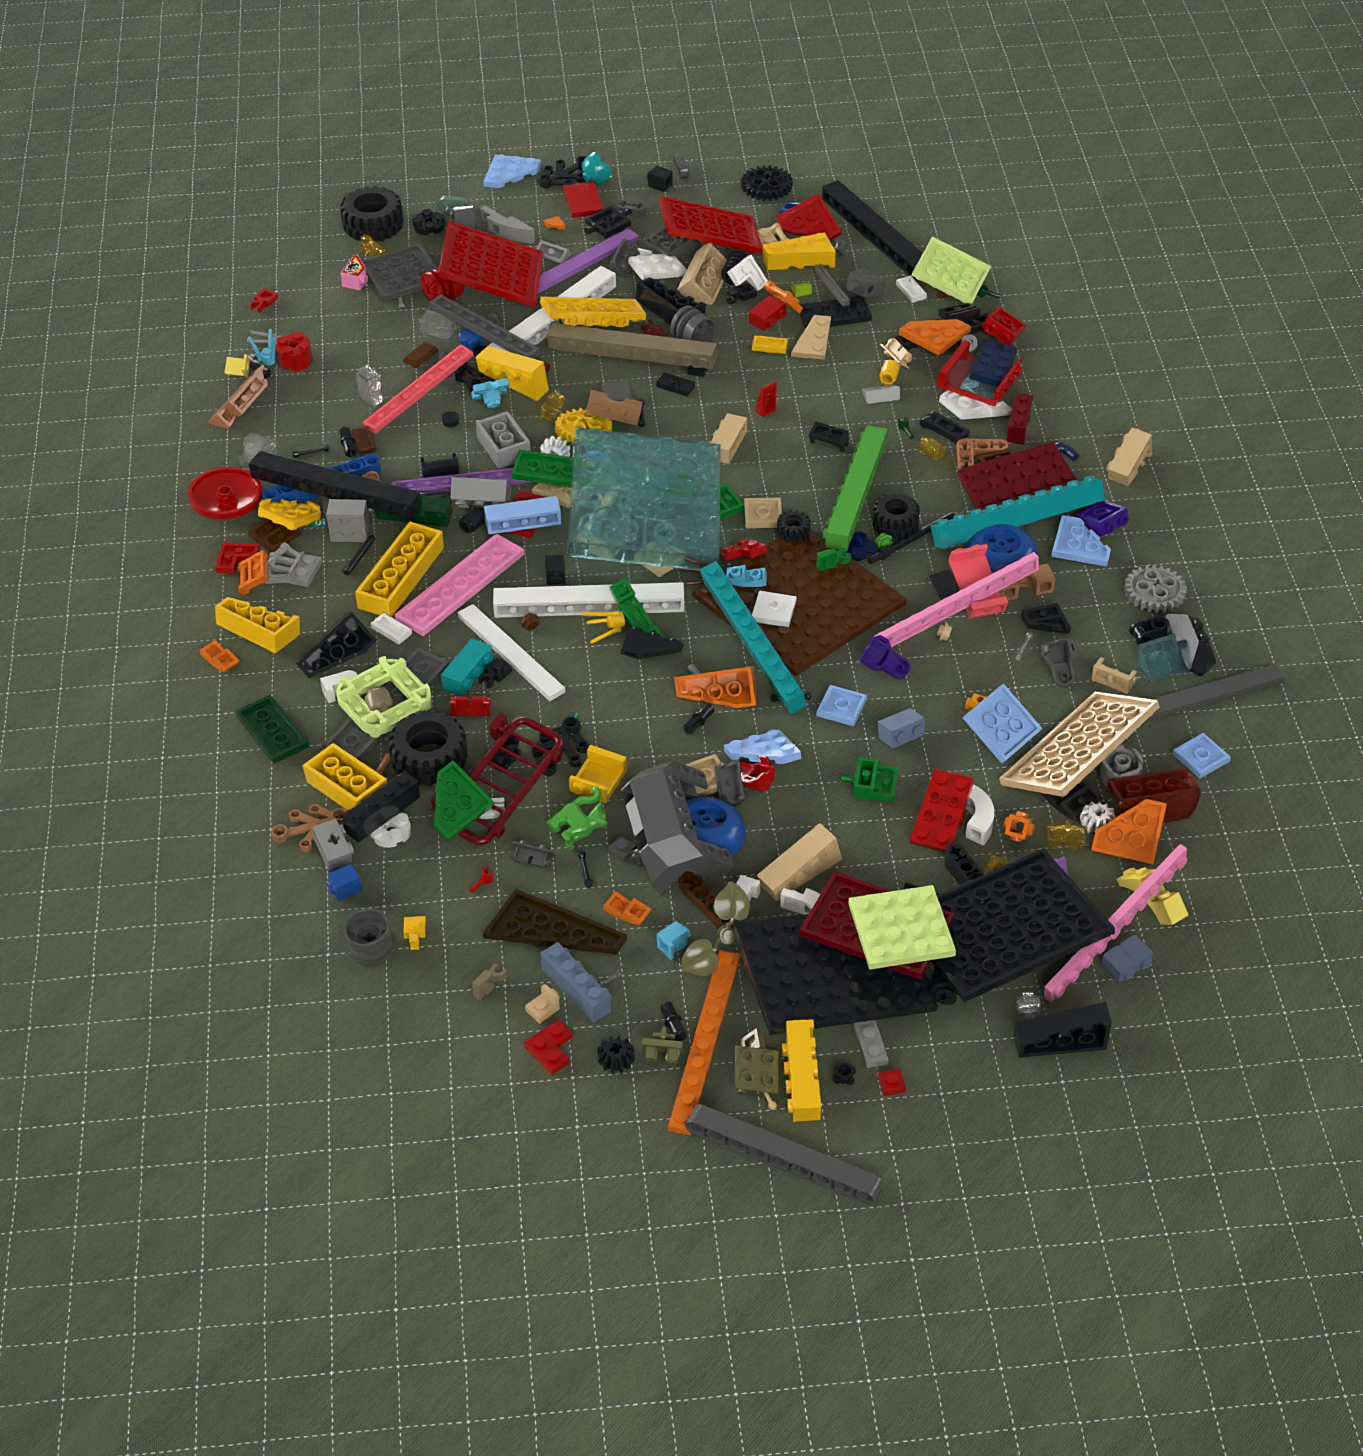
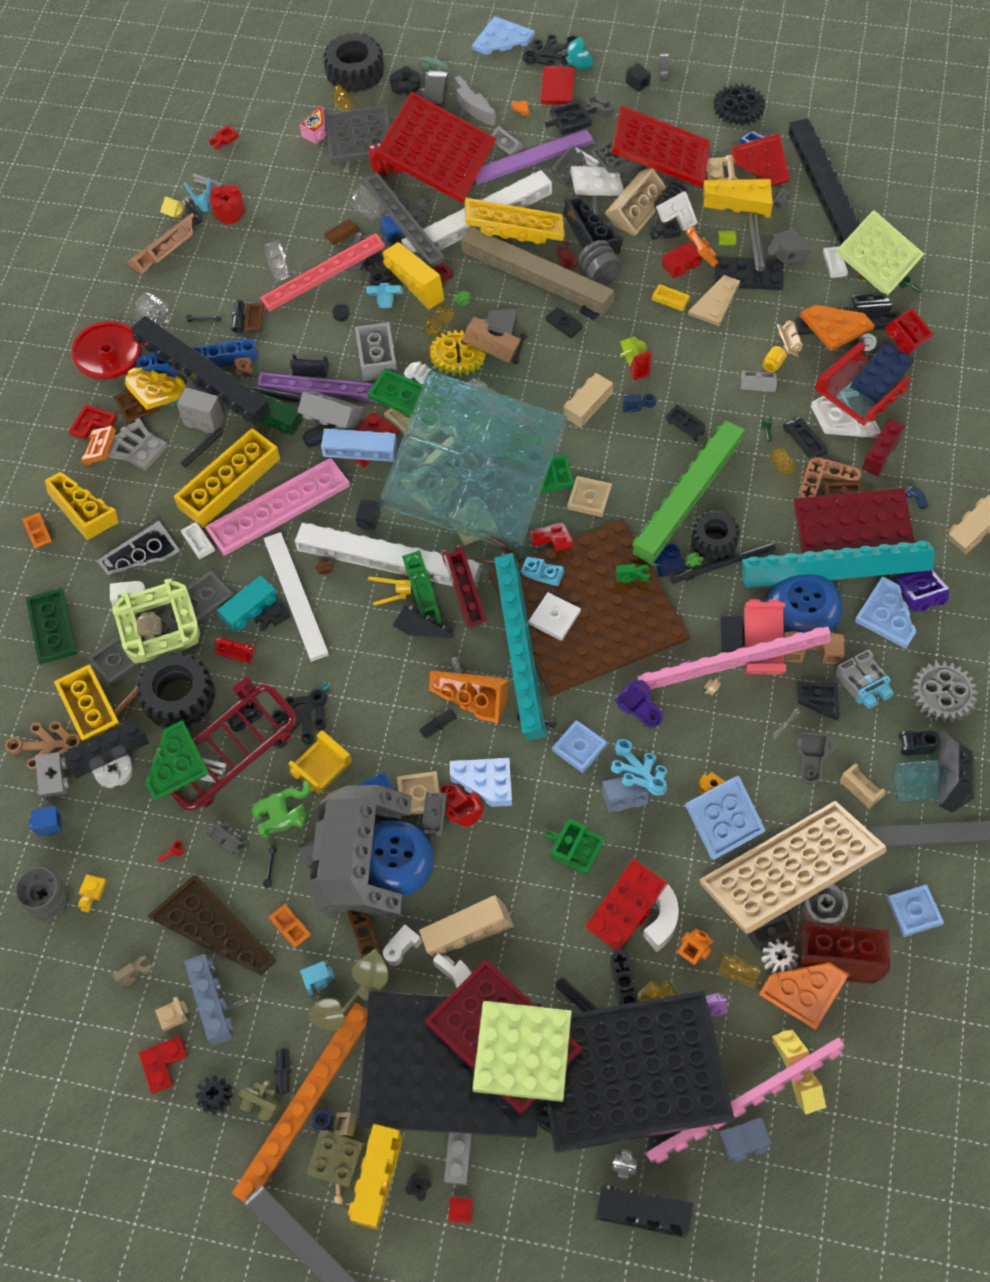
camera: 20 degrees right, 15 degrees up
(568, 383) = (462, 298): none -> bright green plate
(679, 601) = (464, 587): none -> dark red hinge
(728, 1043) = (318, 1116): none -> dark blue plate
(751, 389) = (632, 347): none -> lime piece
(772, 431) = (633, 403): none -> dark blue plate
(793, 519) = (613, 515): black tyre -> none
(910, 705) = (655, 785): none -> medium azure plant
(1080, 595) = (864, 679): none -> hips

